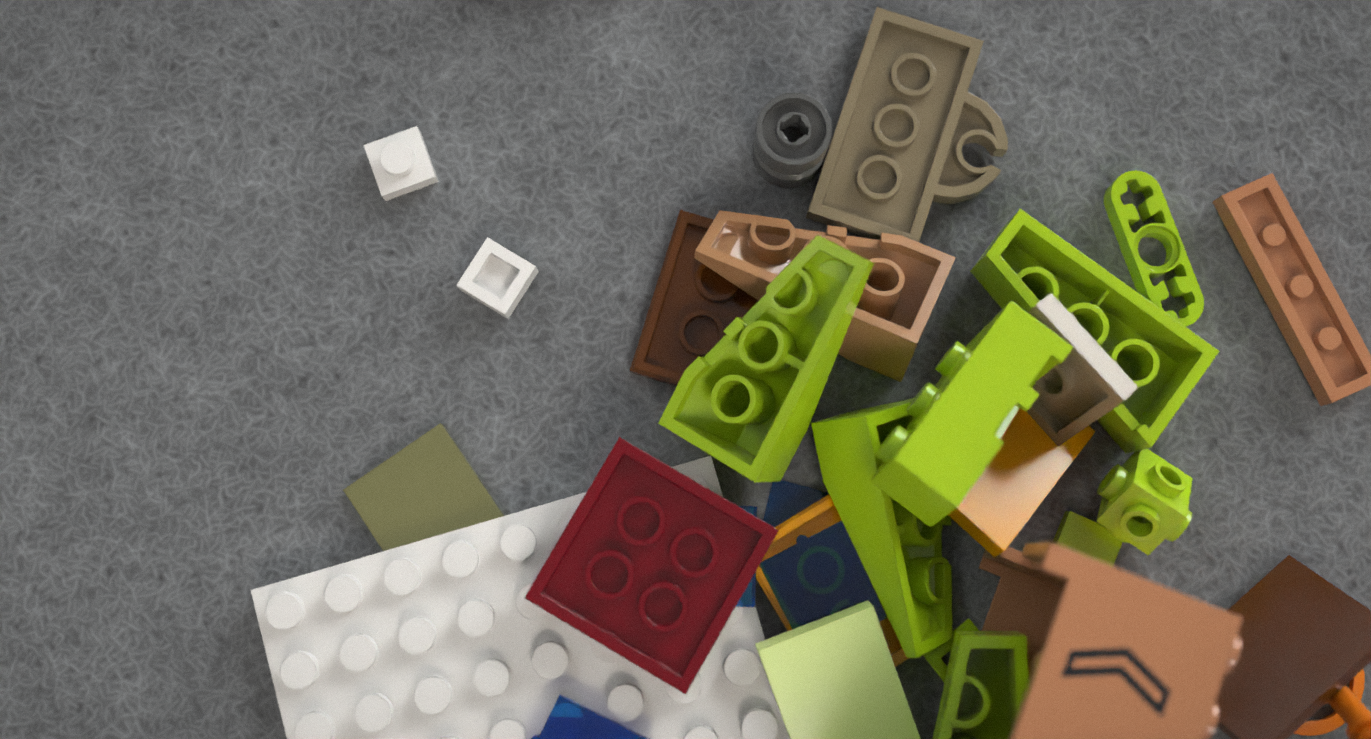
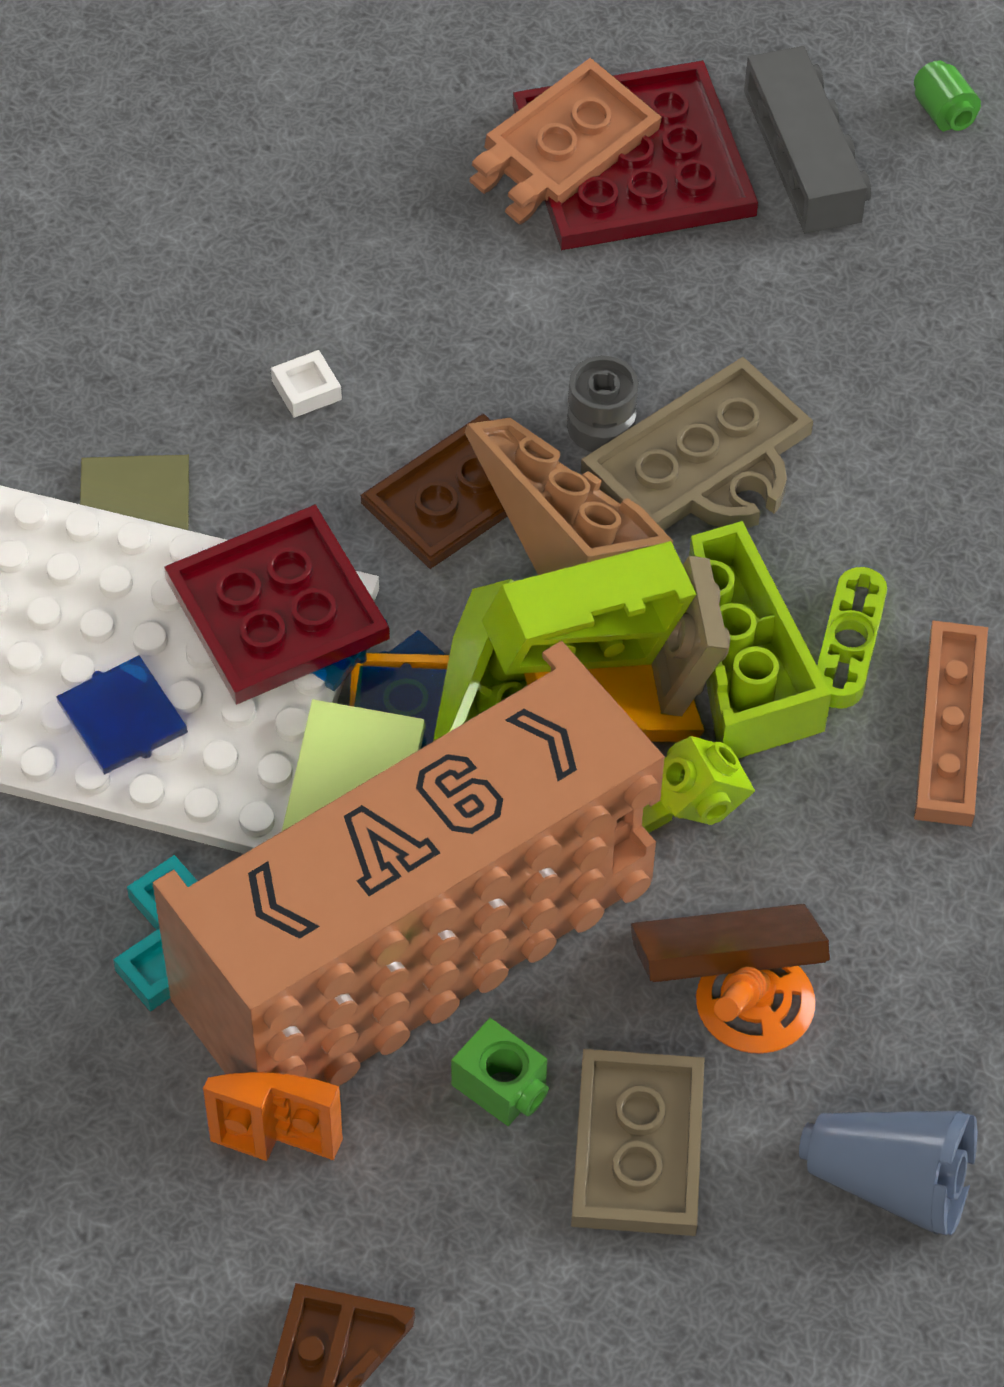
camera: 30 degrees right, 25 degrees down
(401, 163) = (291, 278): white plate -> none
(765, 377) = (457, 537): lime wedge -> none

